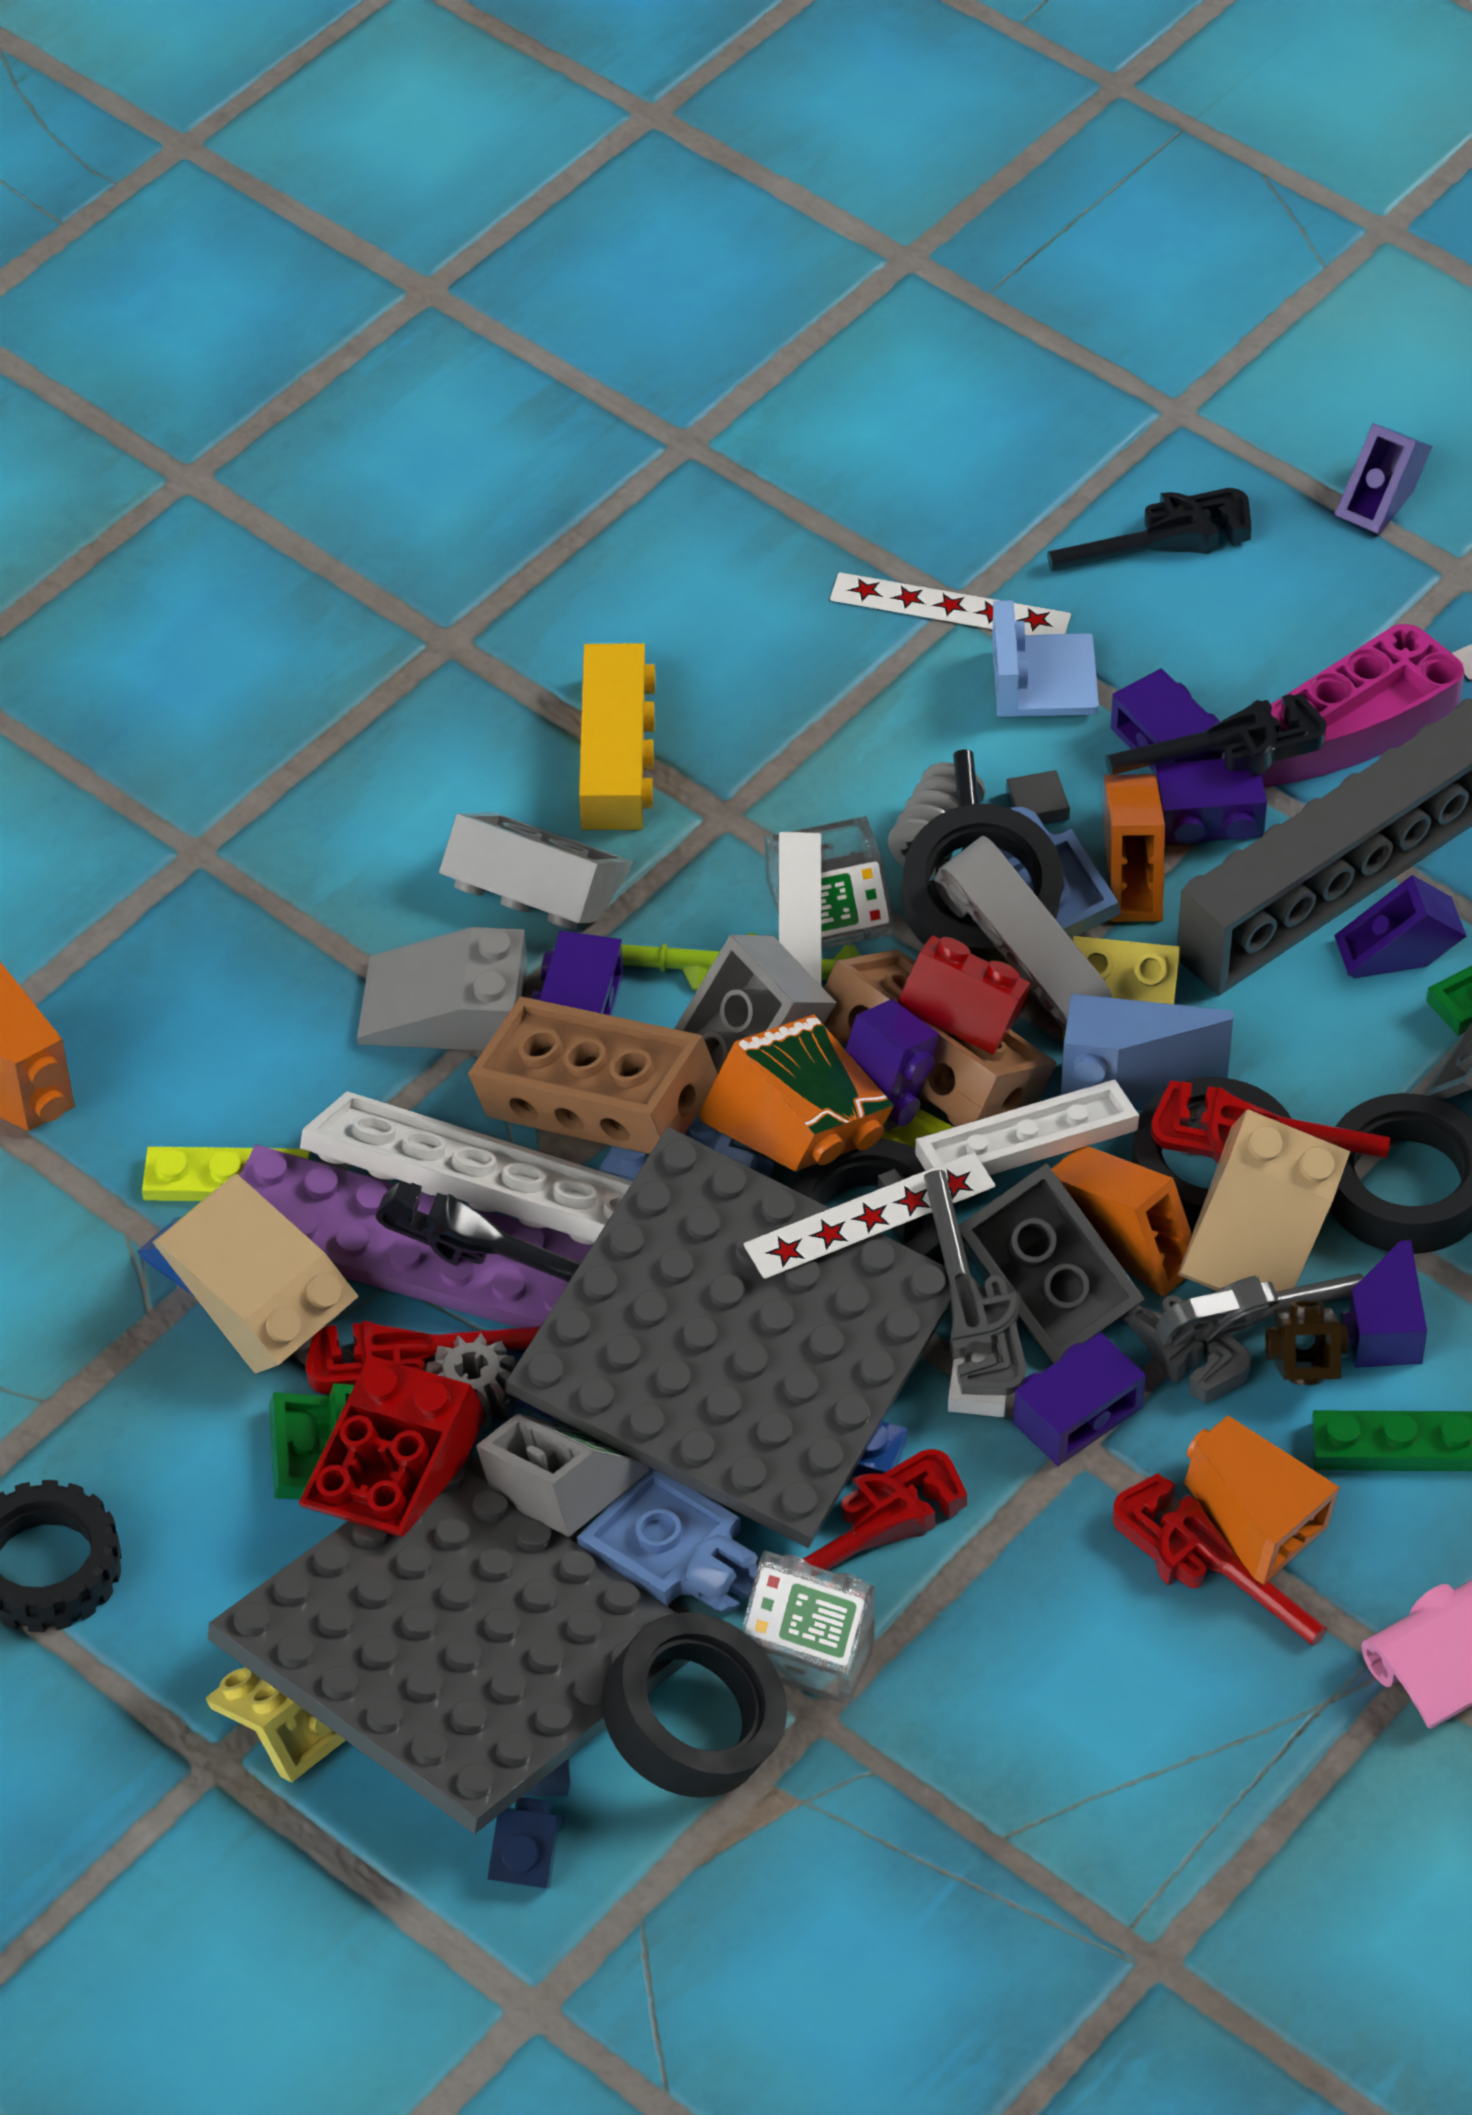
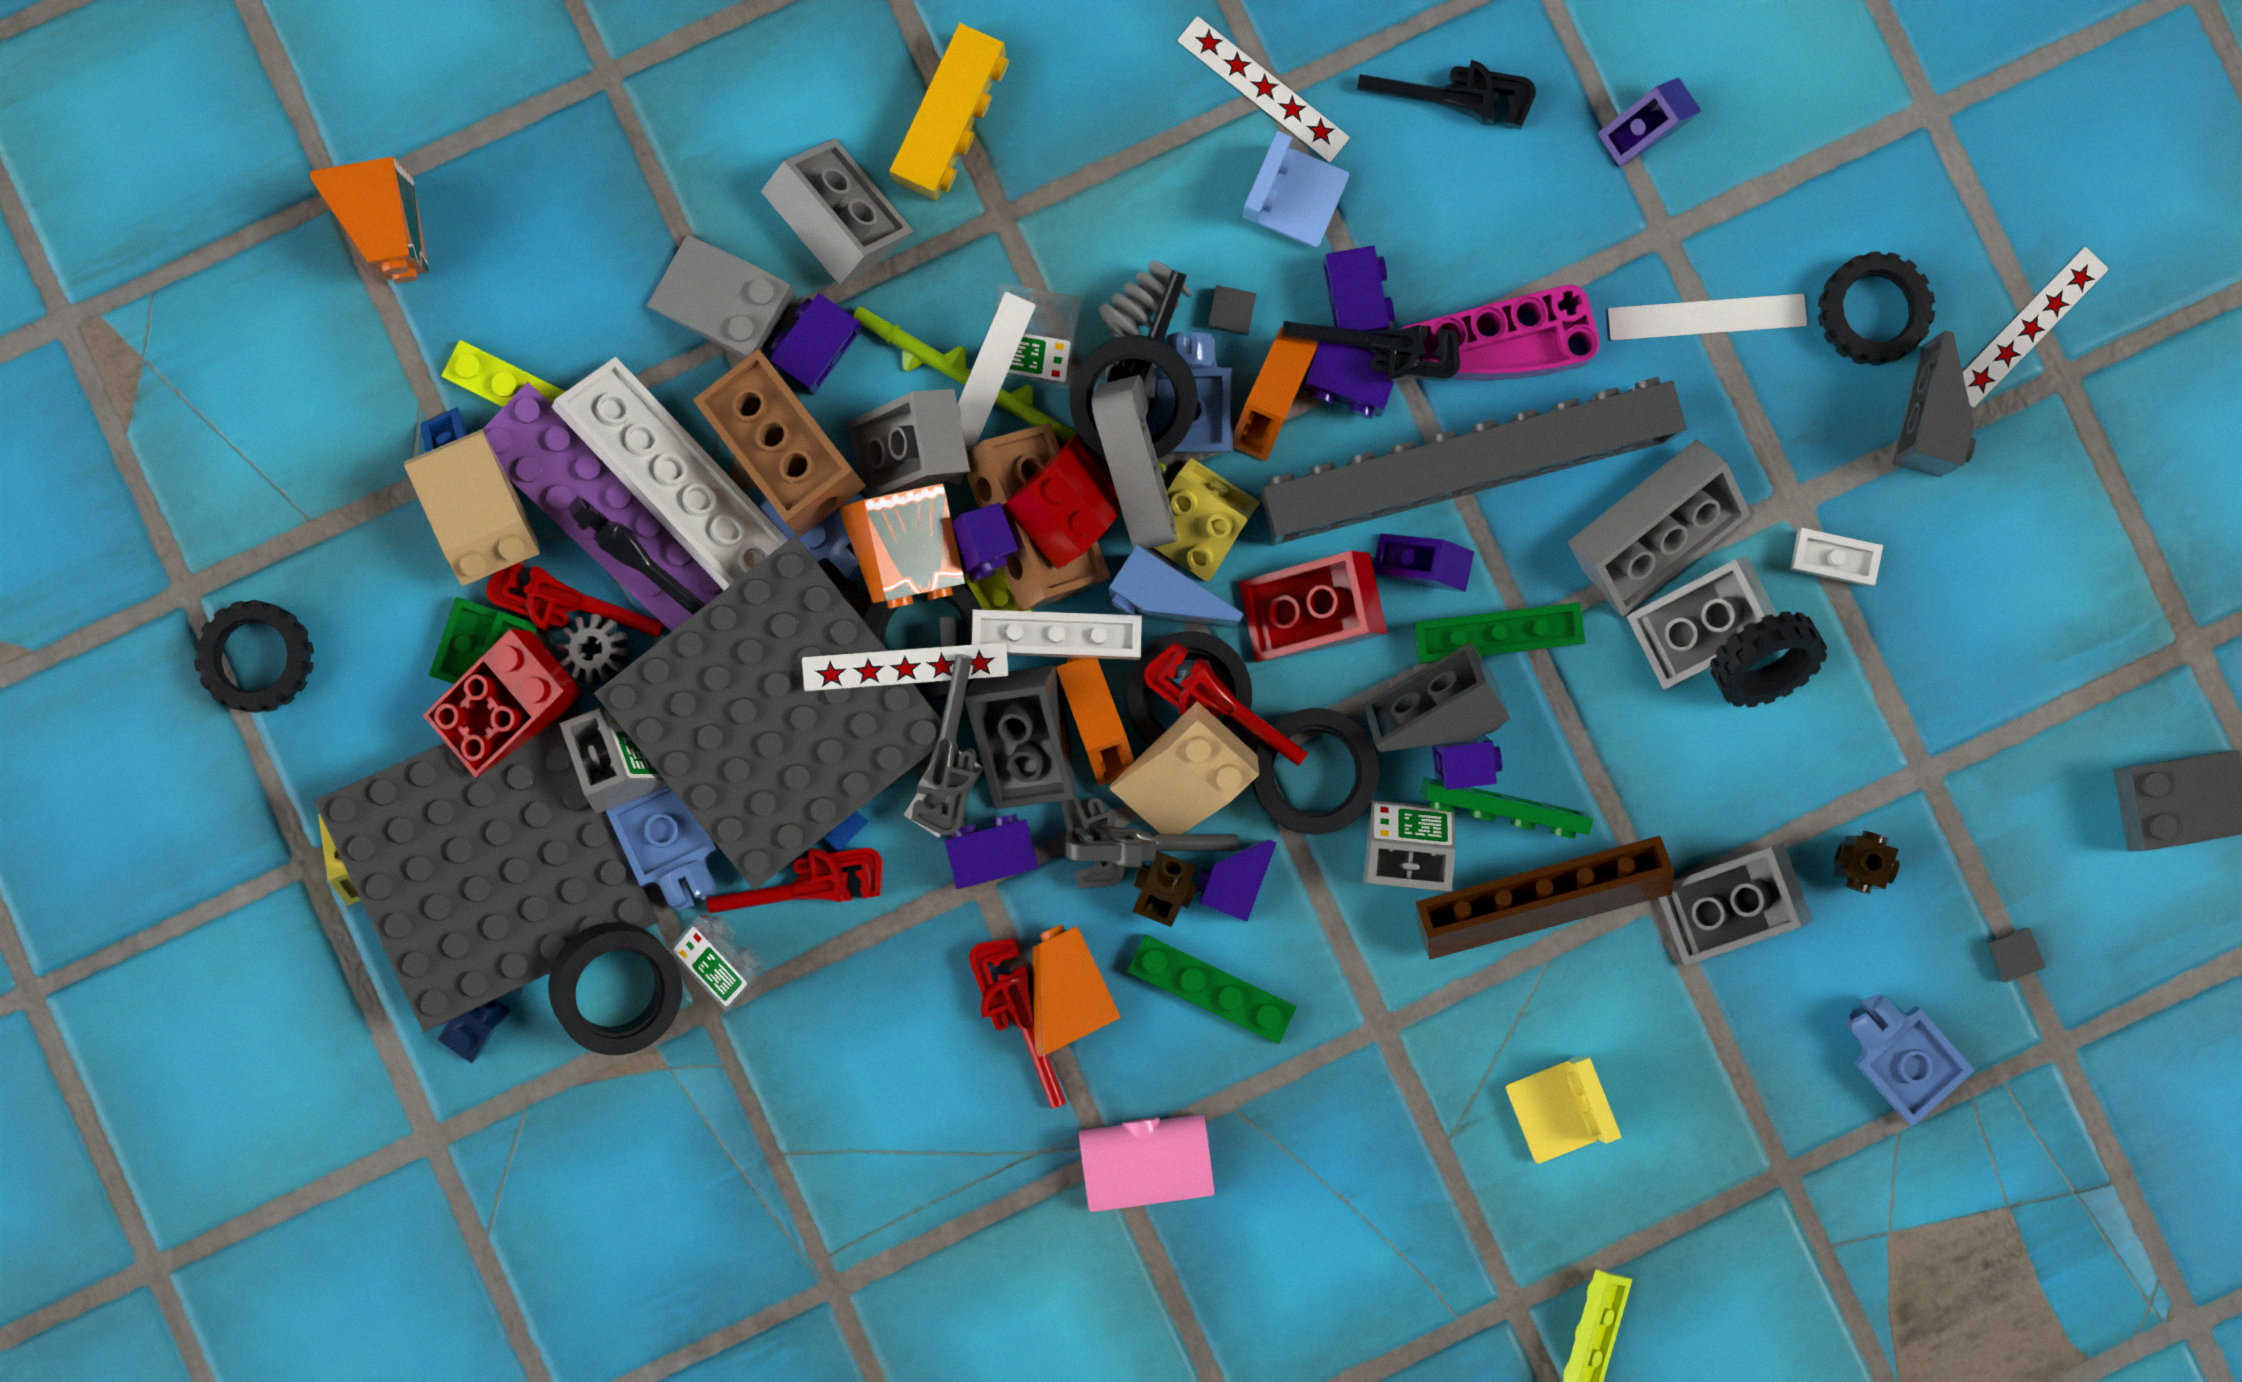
camera: 20 degrees right, 35 degrees up
(1308, 1016) = (1313, 606): none -> red slope

